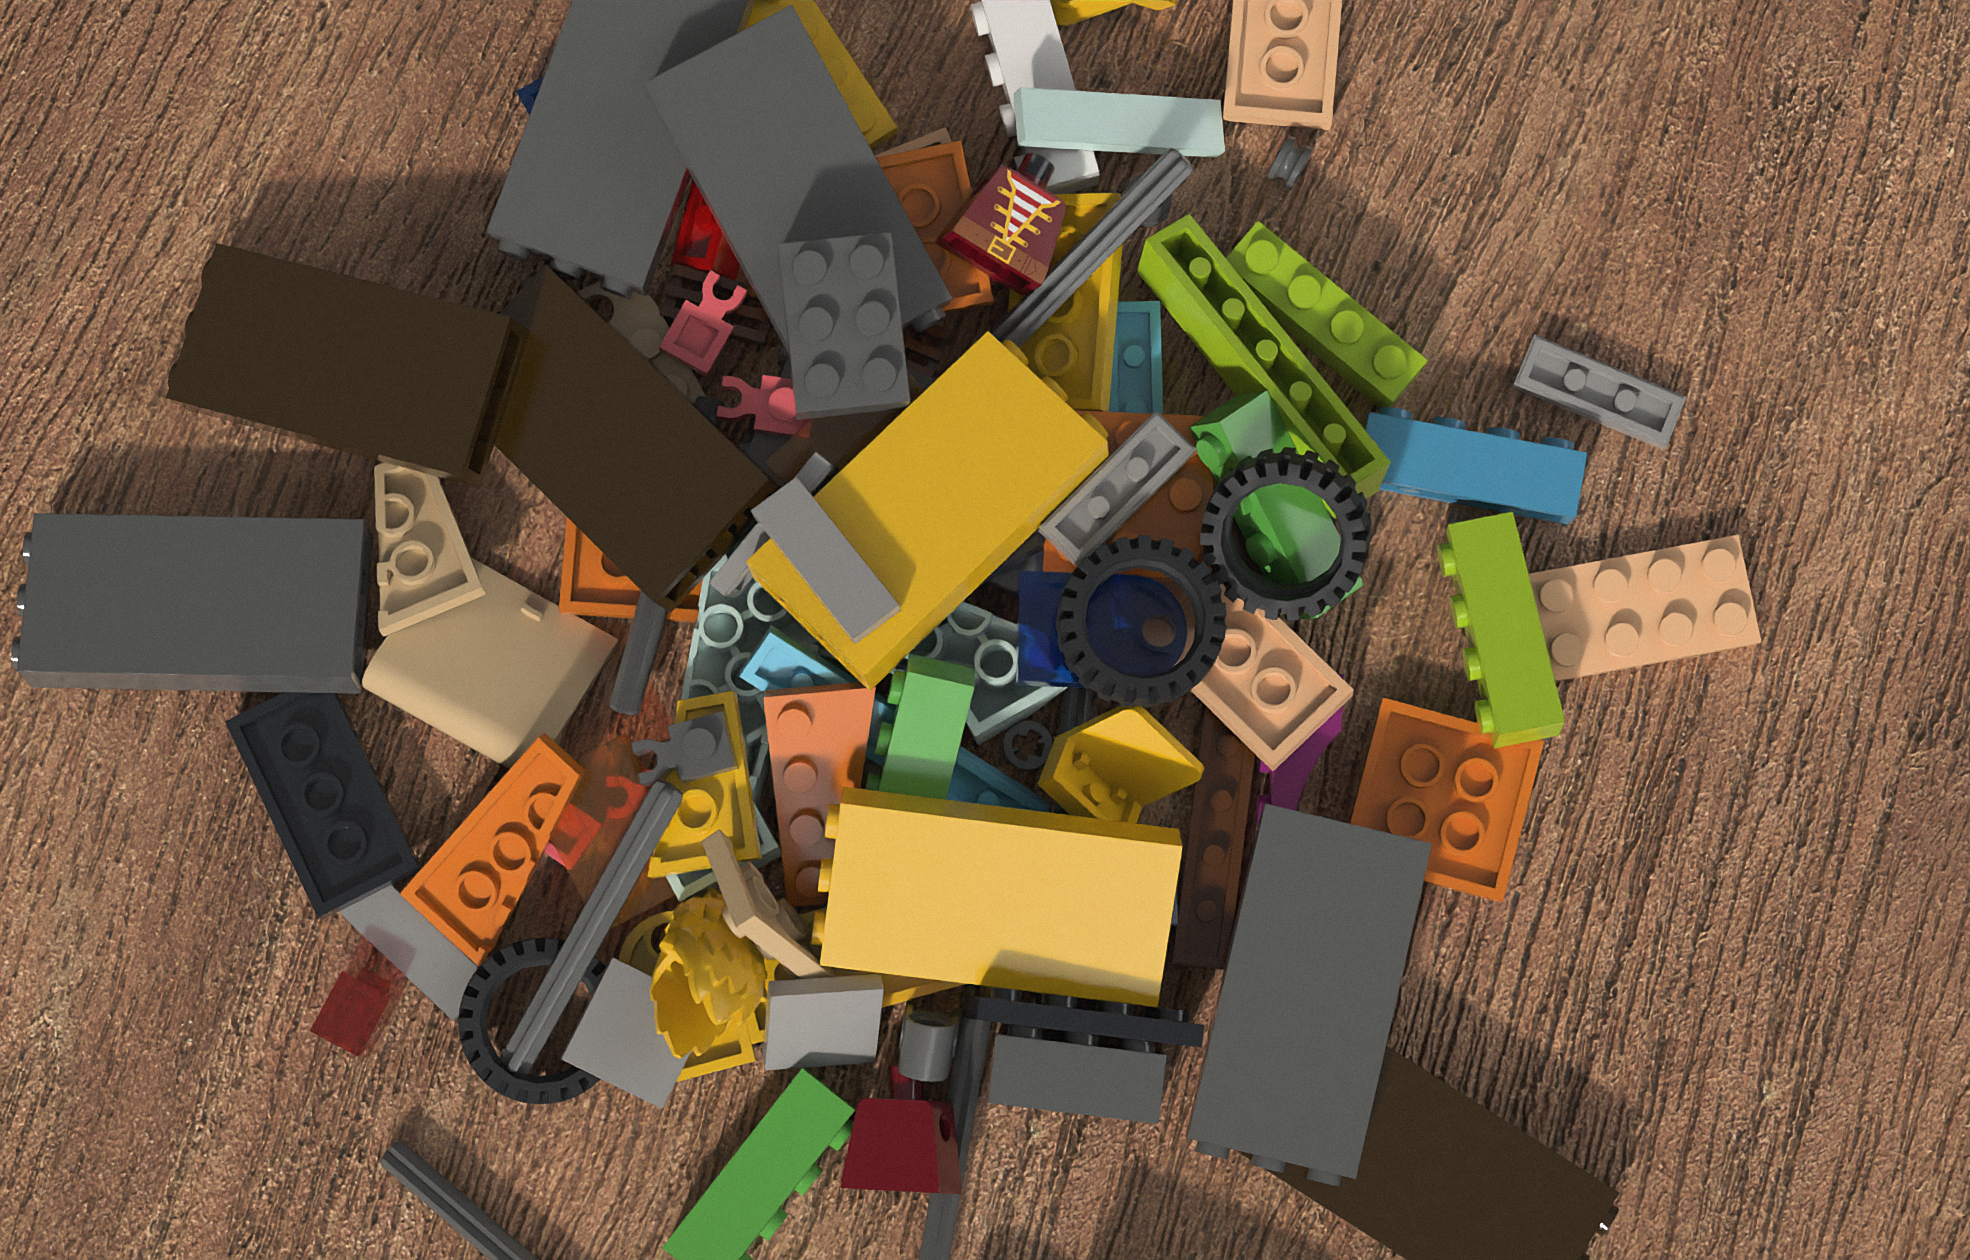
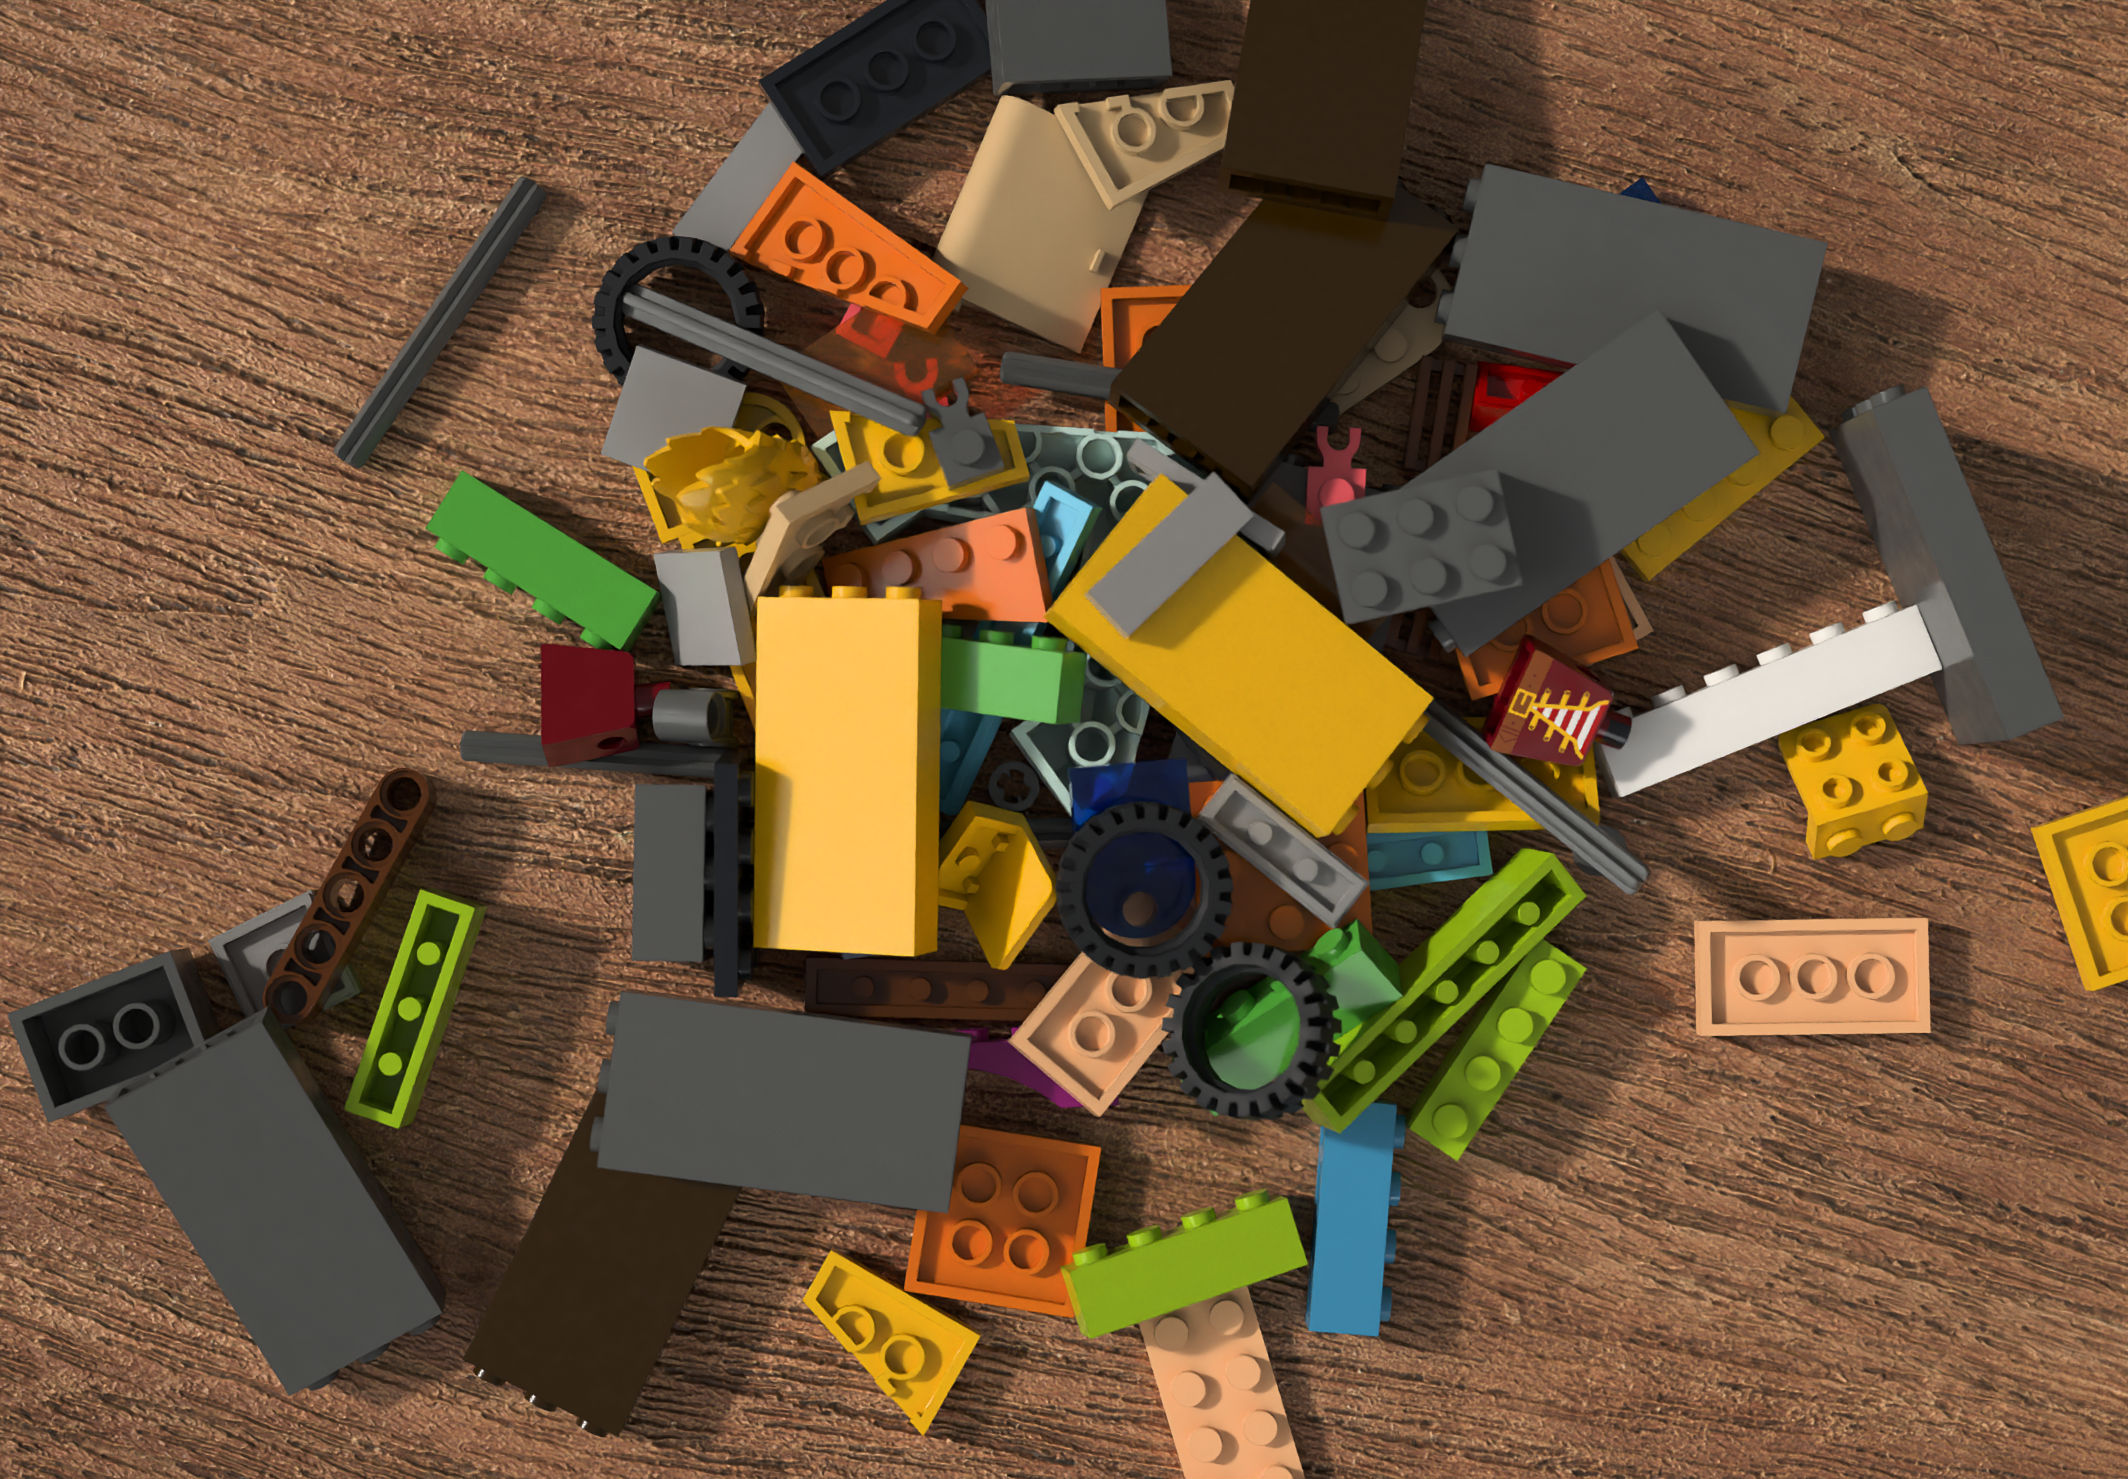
camera: 80 degrees right, 5 degrees up
(356, 1011) = (669, 132): clear red brick -> none
(700, 332) = (1407, 398): coral plate -> none
(1118, 122) = (1676, 811): light aqua tile -> none
(1290, 162) = (1656, 996): dark grey bush -> none
(1543, 917) = (893, 1333): none -> yellow wing
(1599, 392) = (1447, 1342): light grey tile -> none

